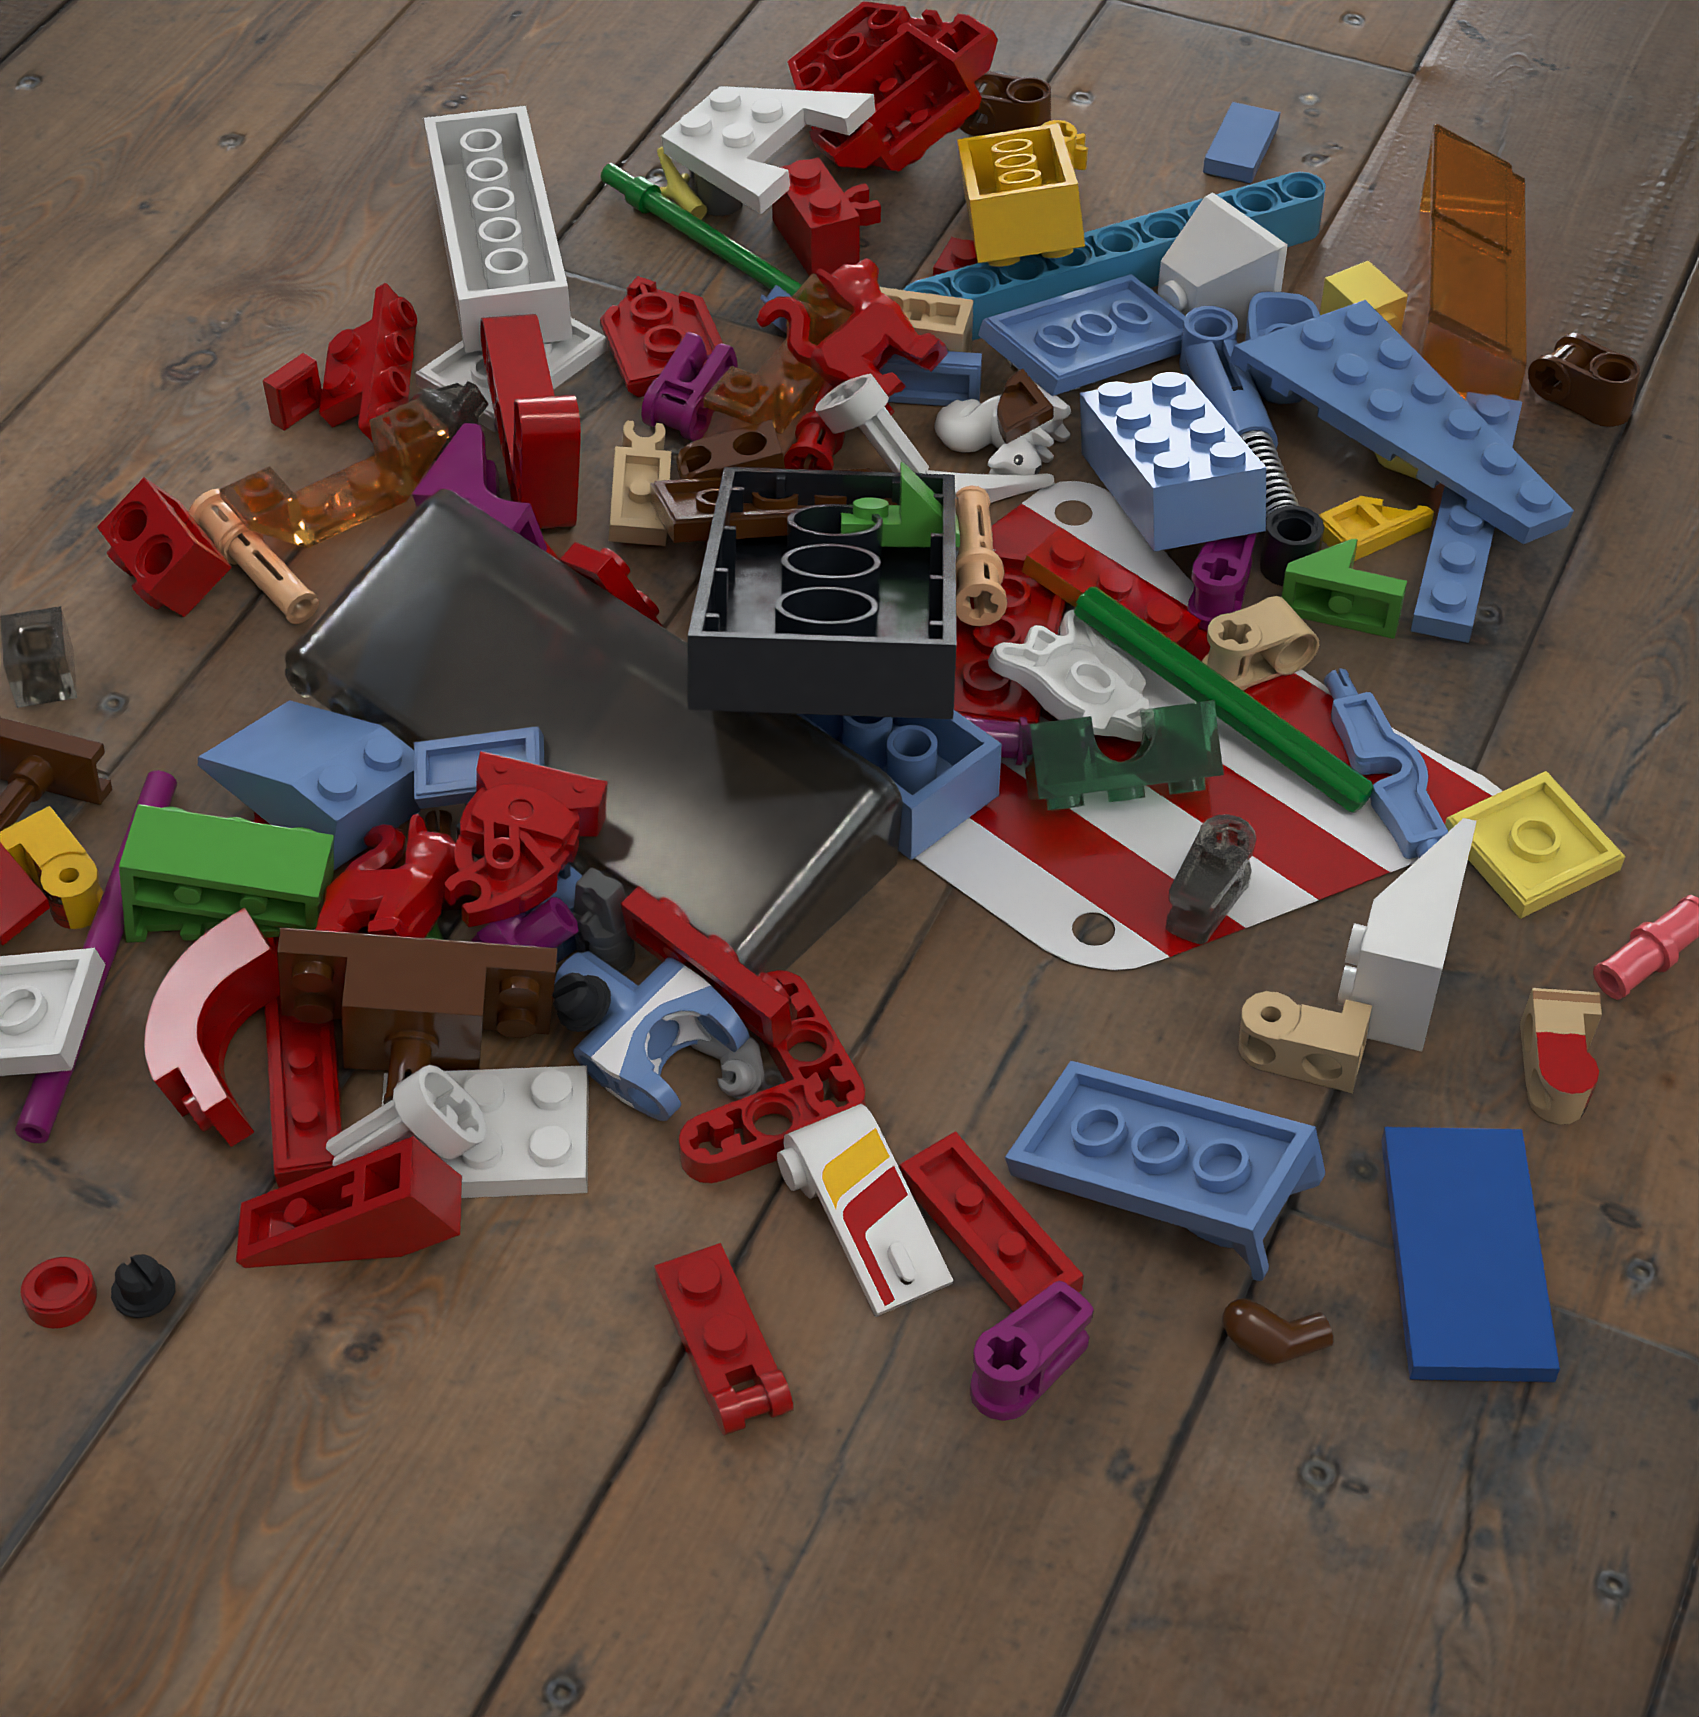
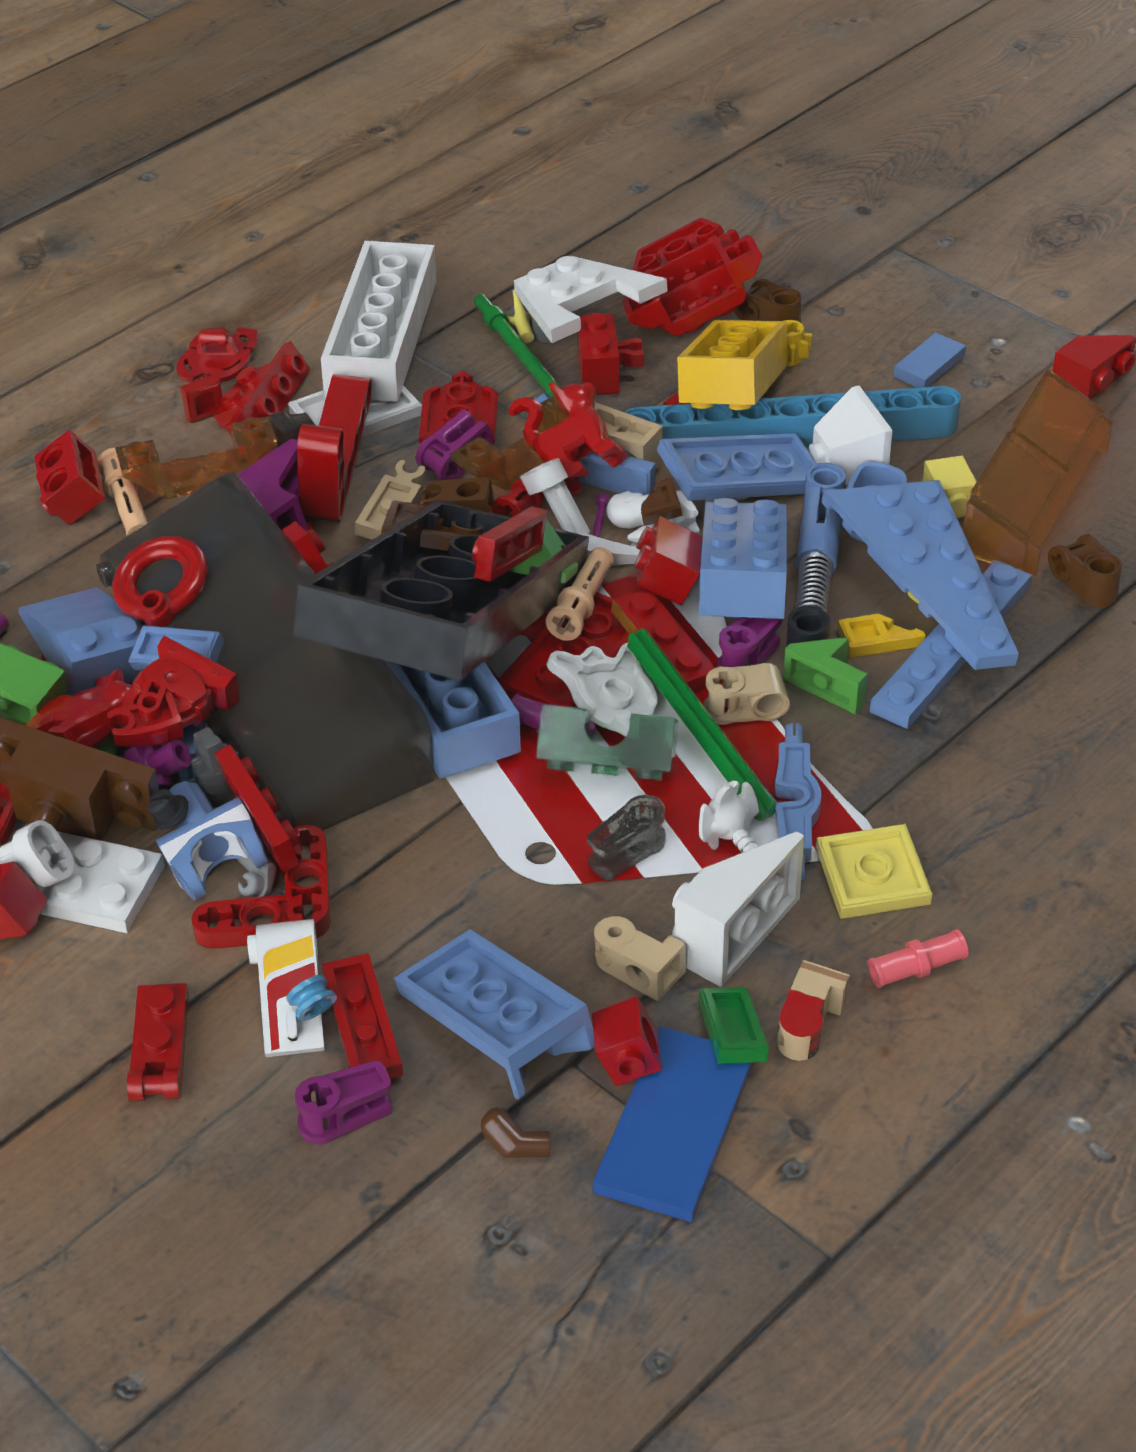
camera: 20 degrees right, 5 degrees down
(277, 322) = (217, 353): none -> red shield
(445, 695) = (157, 607): none -> red piece
(900, 510) = (509, 544): none -> red plate
(920, 420) = (601, 500): none -> magenta hinge
(921, 1217) = (311, 997): none -> dark azure bush
(1072, 483) = (668, 560): none -> red brick
(1329, 822) = (729, 816): none -> white piece
(1367, 1161) = (626, 1041): none -> red brick
(1451, 98) = (1094, 361): none -> red slope
(1478, 1100) = (733, 1025): none -> green tile

